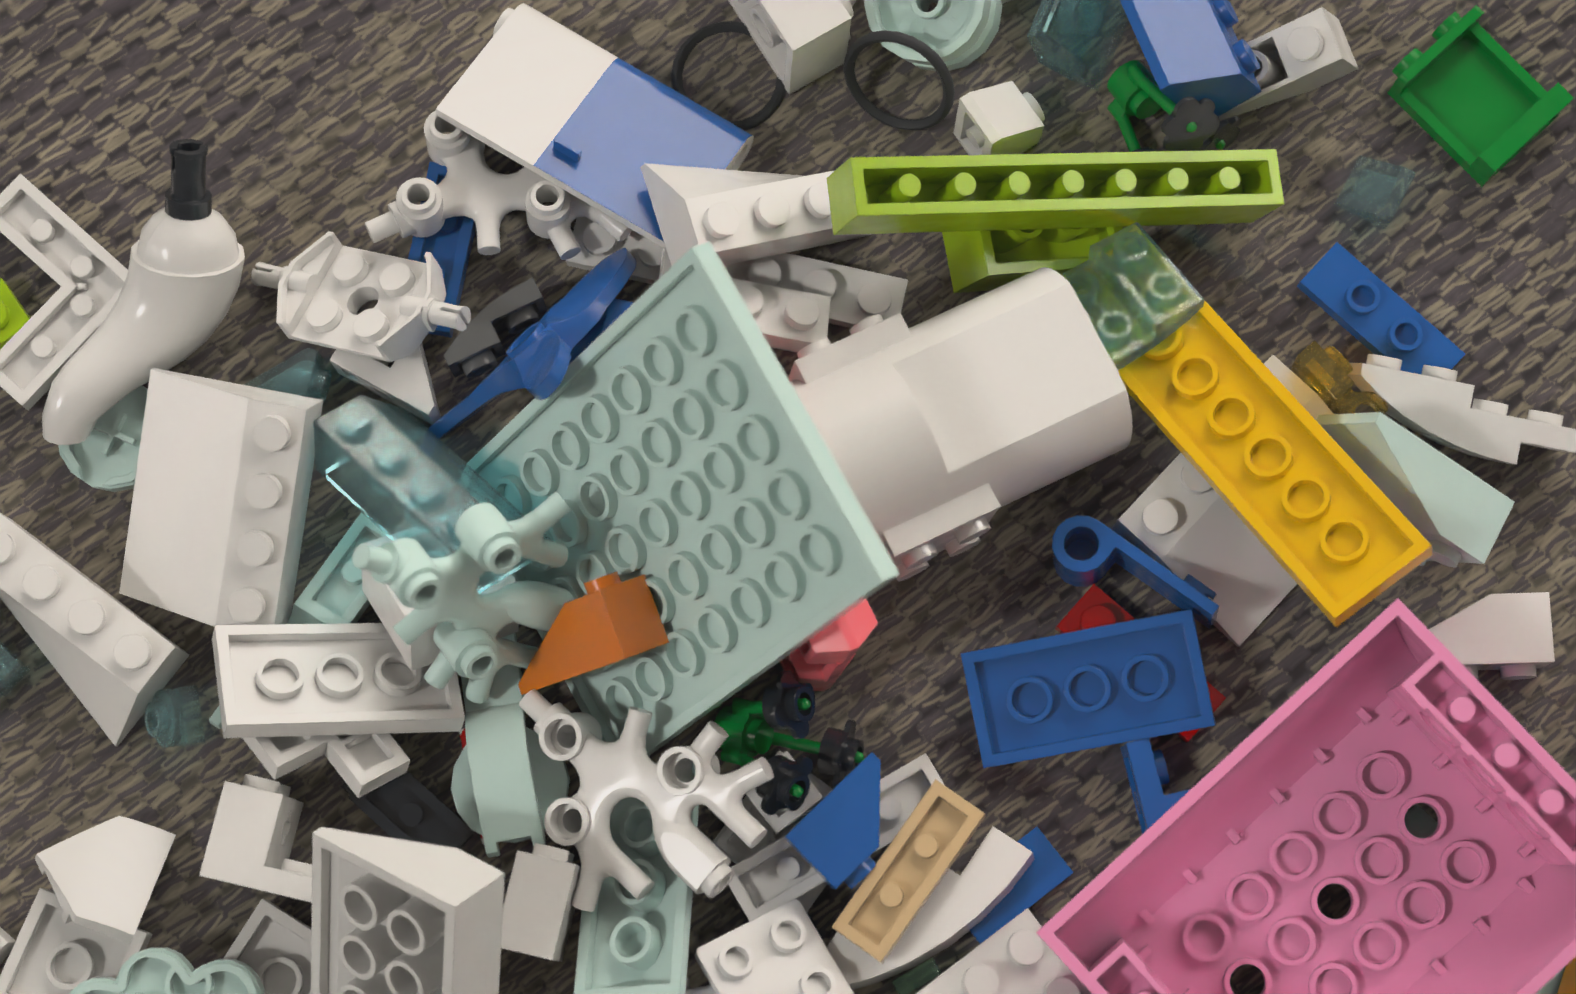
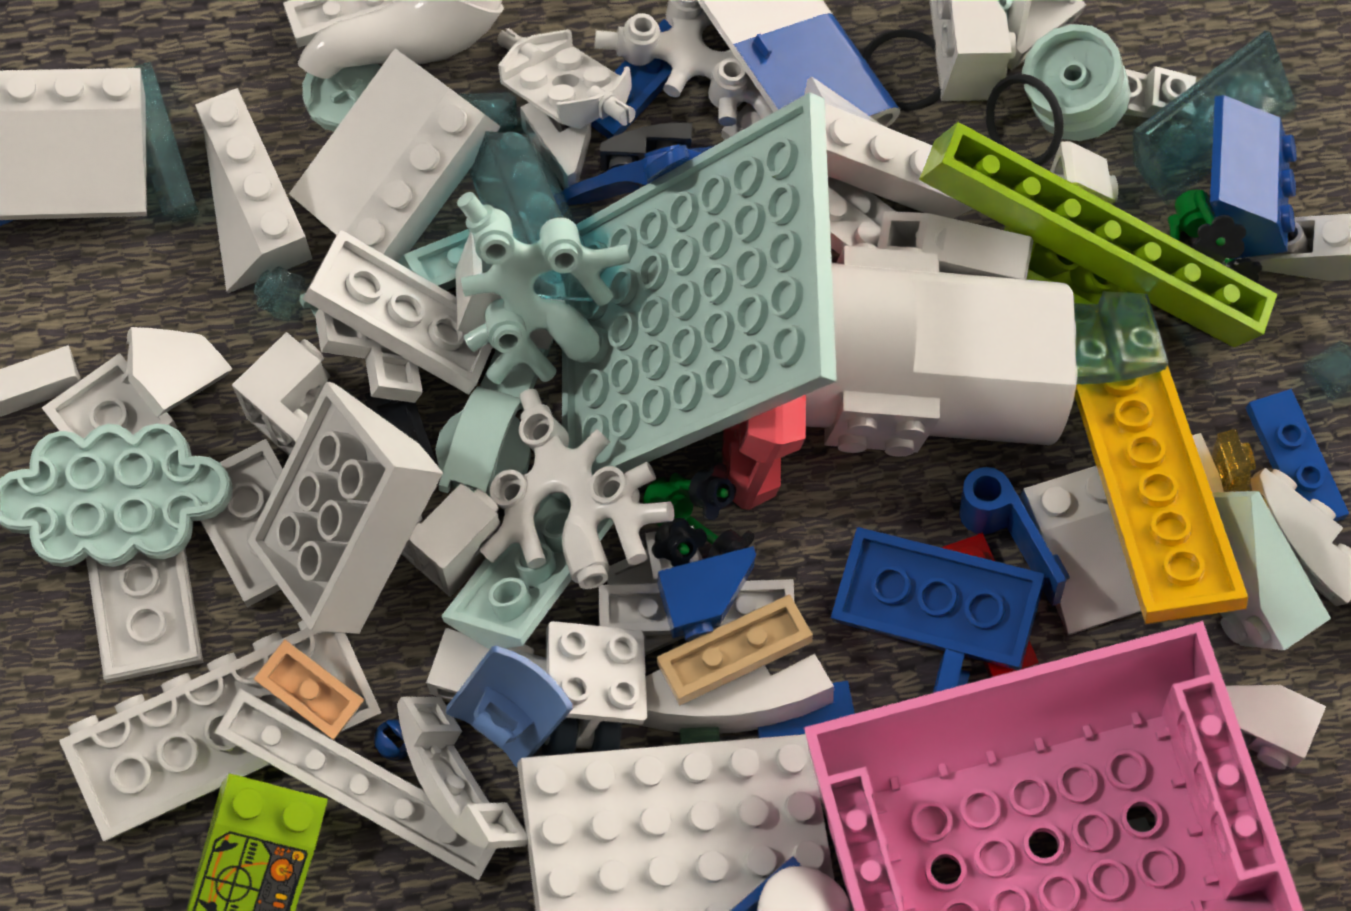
camera: 25 degrees right, 10 degrees down
(597, 630) = (600, 365): orange slope -> none
(907, 283) = (960, 244): none -> white slope

